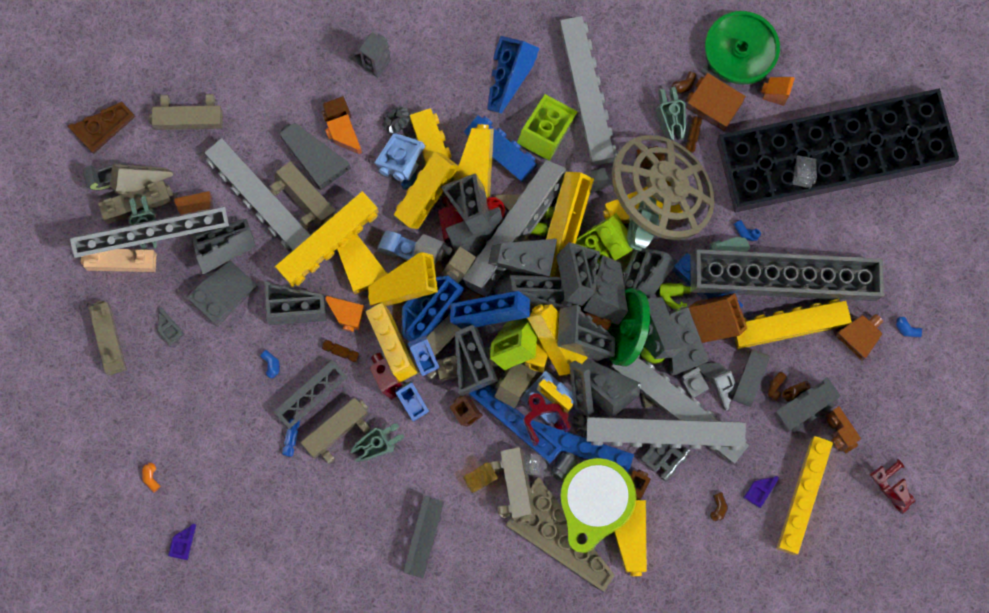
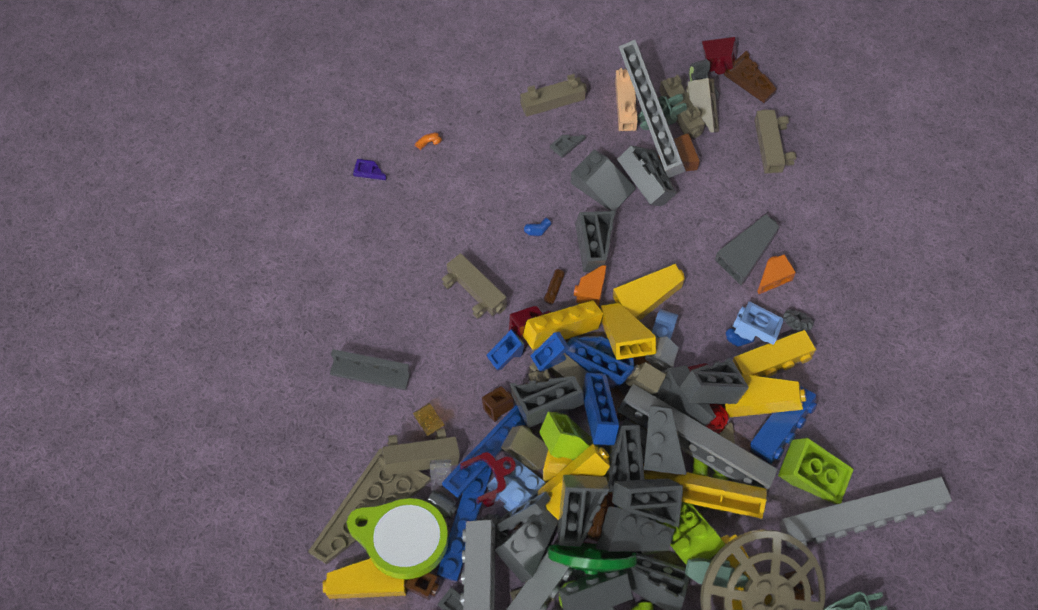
camera: 90 degrees right, 15 degrees down
(72, 154) = (720, 54): none -> dark red torso
(256, 195) = (694, 209): light grey brick -> none
(290, 439) = (467, 249): blue axle -> none
(302, 392) = (511, 256): dark grey fence -> none
(303, 194) = (706, 243): dark tan brick -> none
(327, 239) = (663, 259): yellow brick -> none
(335, 109) = (800, 264): reddish brown brick -> none
(372, 54) = (864, 290): dark grey wedge -> none
(377, 443) = (462, 321): sand green hinge -> none
(425, 190) = (720, 345): yellow brick -> none
(514, 64) = (885, 435): blue wedge -> none
(549, 390) = (519, 479): yellow plate -> none
(600, 181) = (757, 524): dark grey tile -> none

